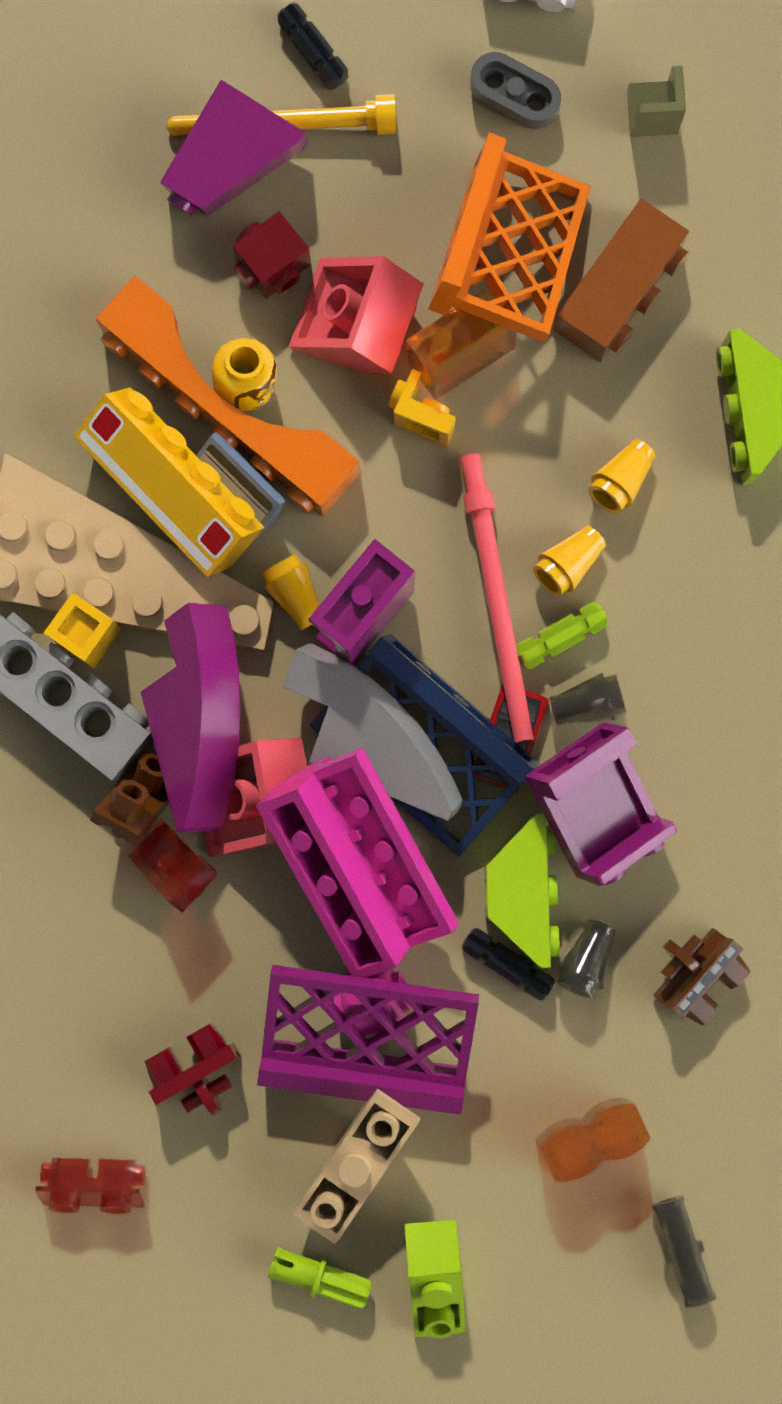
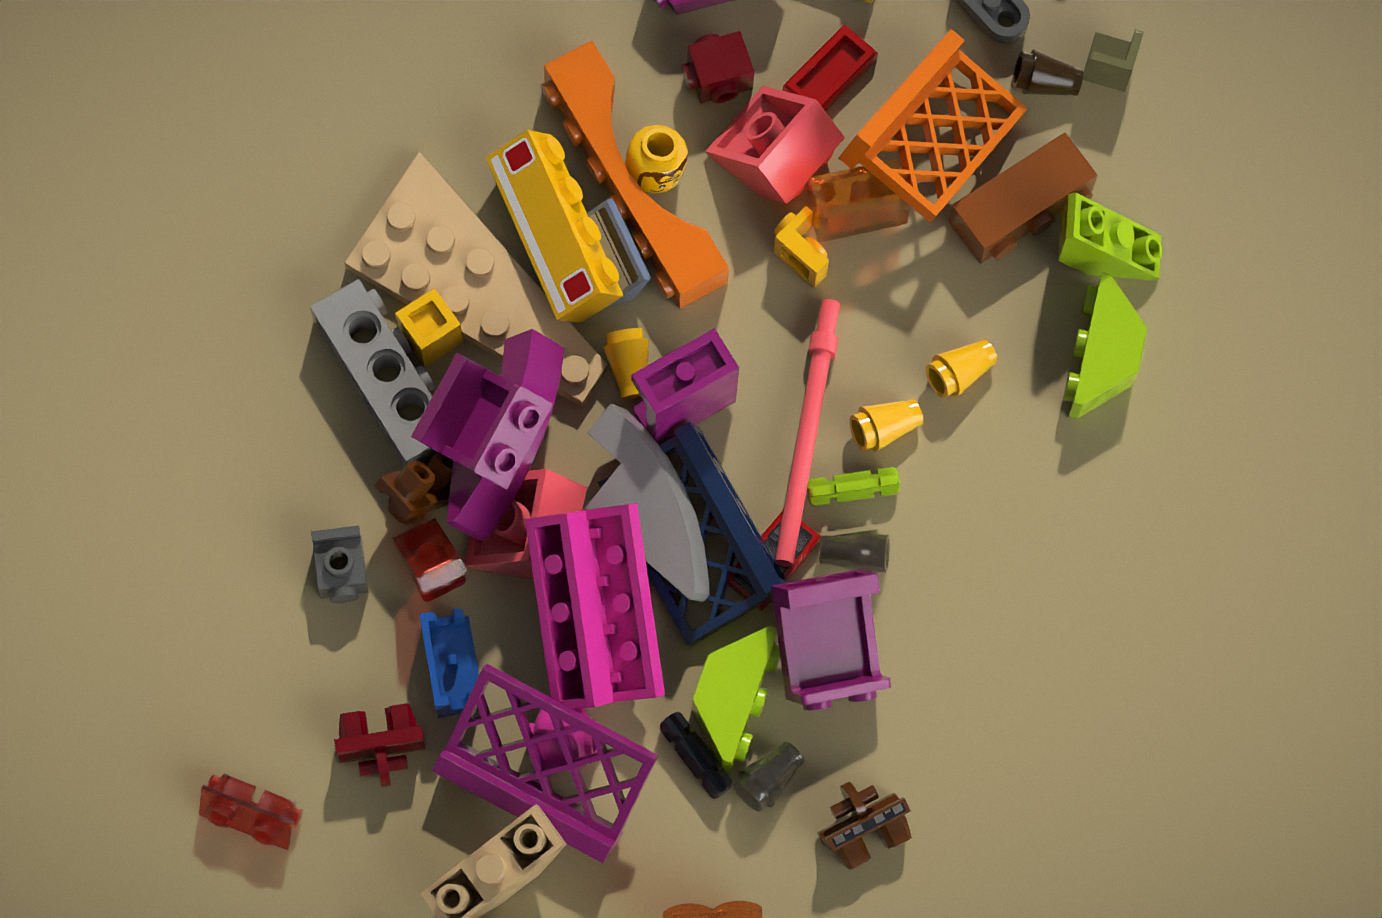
camera: 15 degrees right, 10 degrees down
(89, 884) = (337, 544): none -> dark grey brick
(174, 720) = (482, 420): none -> magenta panel
(232, 962) = (449, 660): none -> blue hinge
(382, 215) = (832, 68): none -> red tile
(596, 145) = (1045, 75): none -> dark brown cone
(720, 296) = (1107, 242): none -> lime slope

